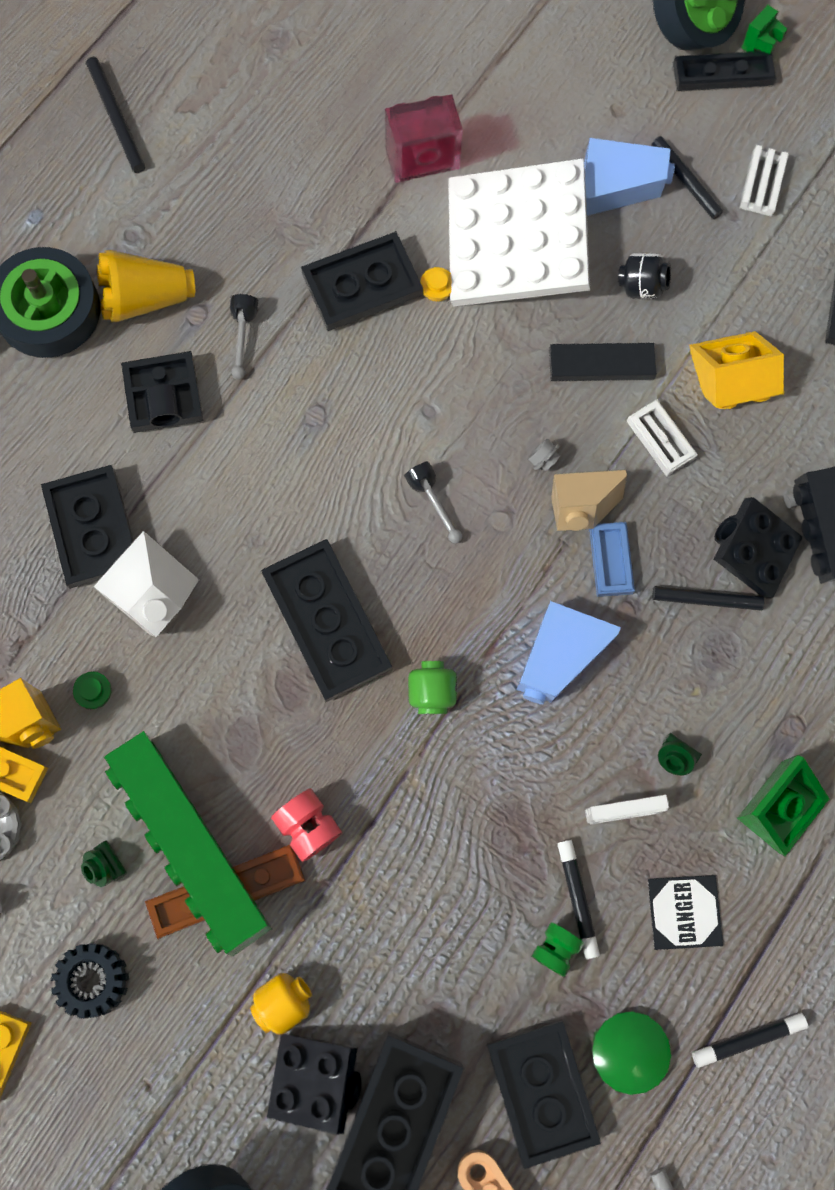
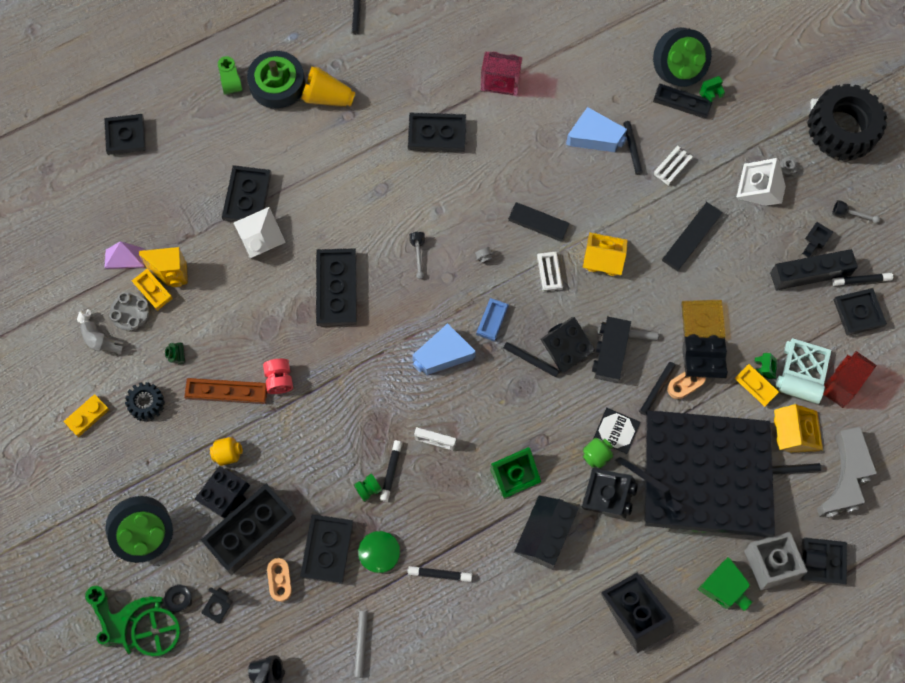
camera: 30 degrees right, 5 degrees down
(92, 690) = (210, 271): green plate -> none
(162, 392) = (312, 145): black plate -> none
(187, 844) = (218, 359): green brick -> none
(244, 310) = (371, 122): hinge -> none
(432, 688) = (370, 340): bright green head -> none
(436, 284) = (474, 149): yellow plate -> none
(518, 233) = (527, 140): white plate -> none
(585, 497) = (493, 283): tan slope -> none
(645, 275) = (582, 187): black head -> none
(677, 756) = (474, 426): dark green plate -> none
(685, 912) = (440, 502): sticker -> none

